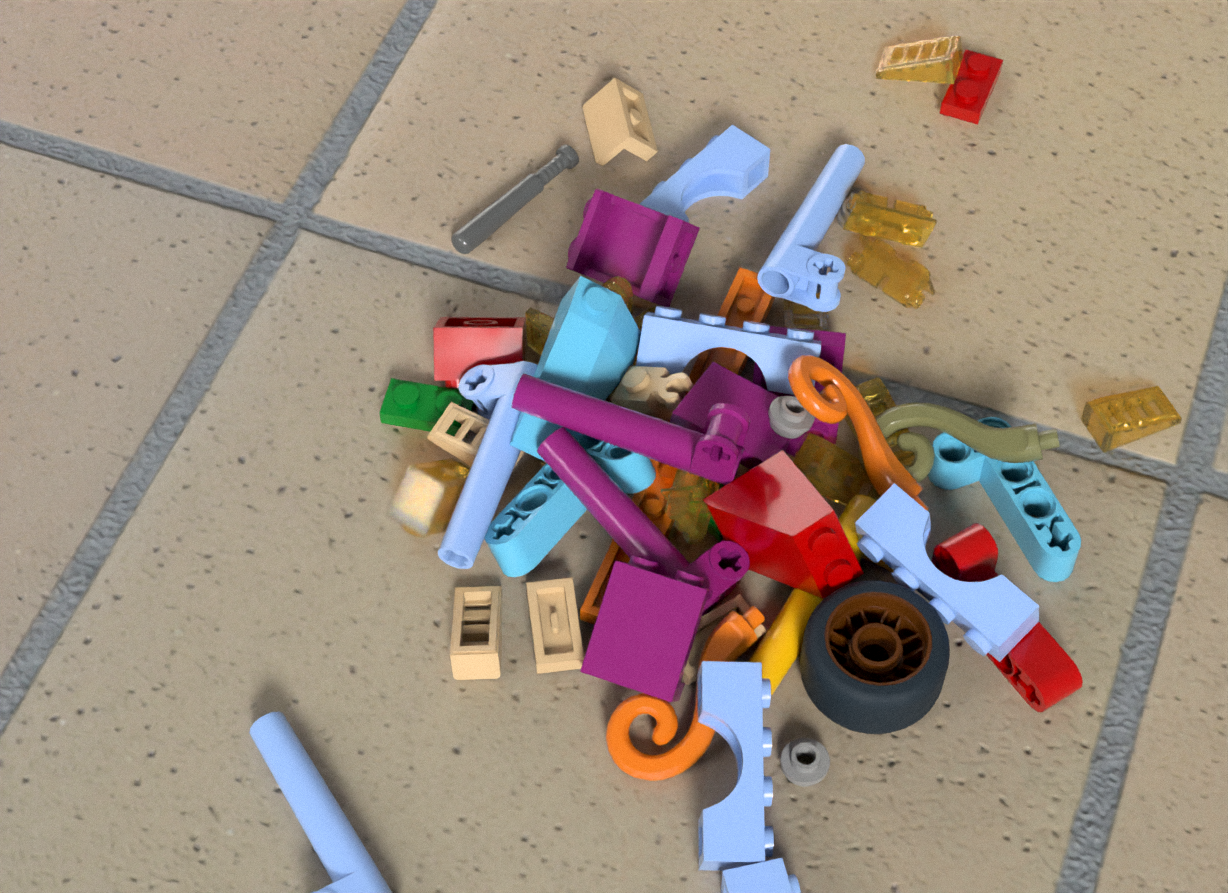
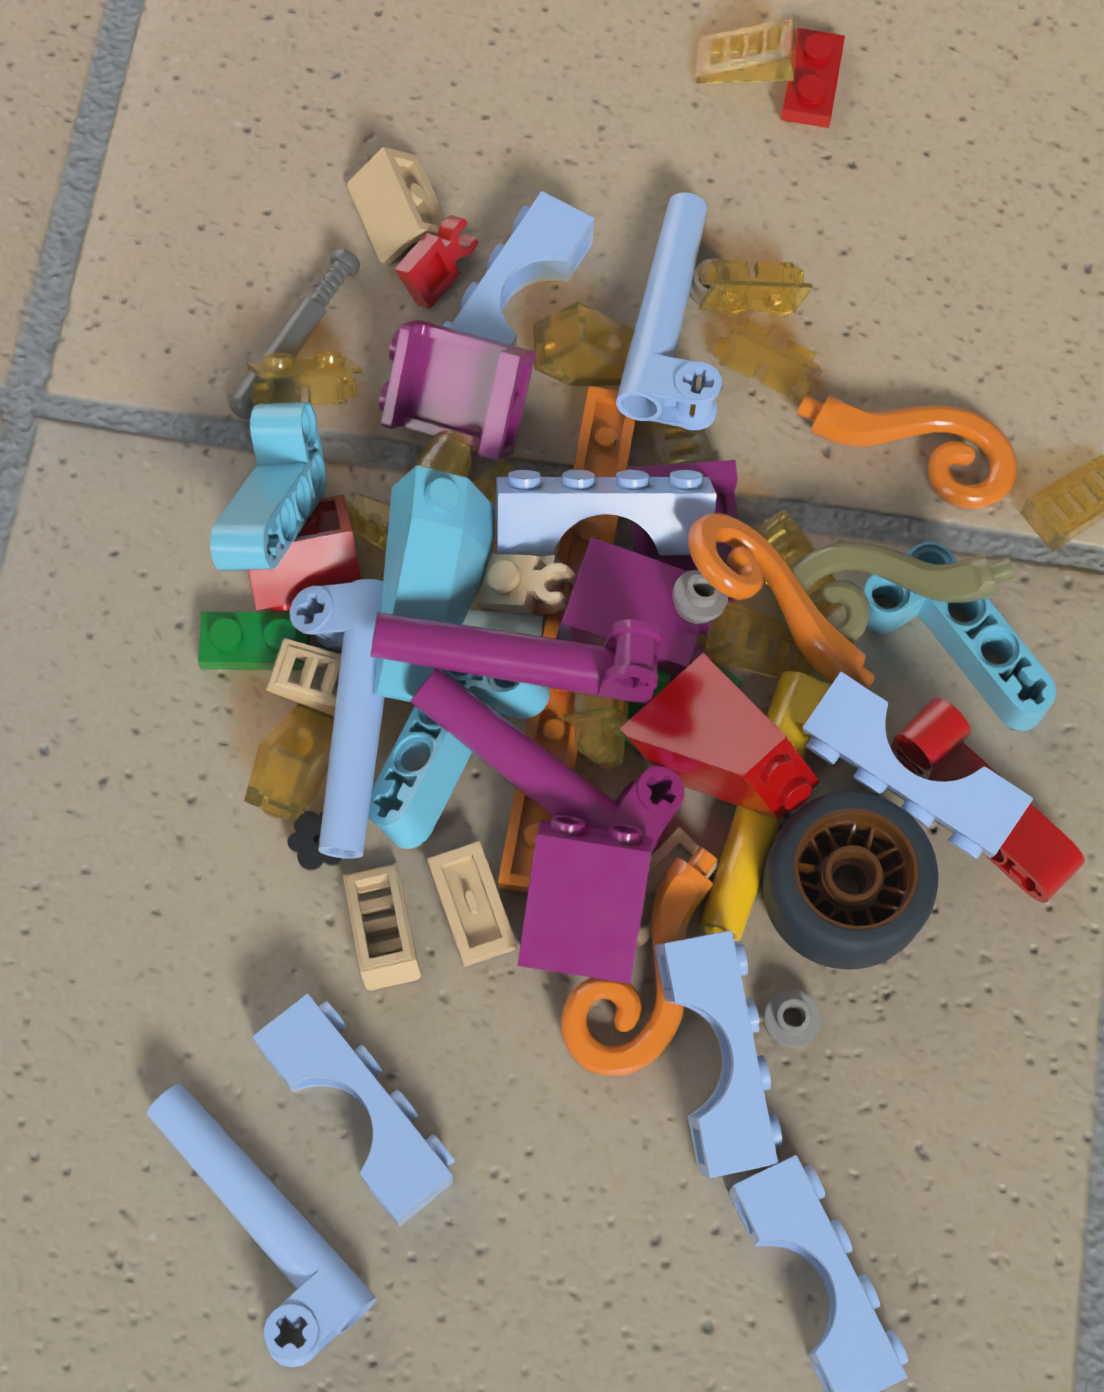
camera: 15 degrees left, 15 degrees up
(432, 565) = (303, 842): none -> black plant
(446, 807) = (310, 1052): none -> light blue arch
(476, 297) = (277, 494): none -> medium azure beam
(531, 230) = (324, 376): none -> clear yellow hinge
(635, 164) = (431, 263): none -> red plate
(738, 237) = (581, 346): none -> clear yellow slope
(958, 334) = (863, 428): none -> orange plant

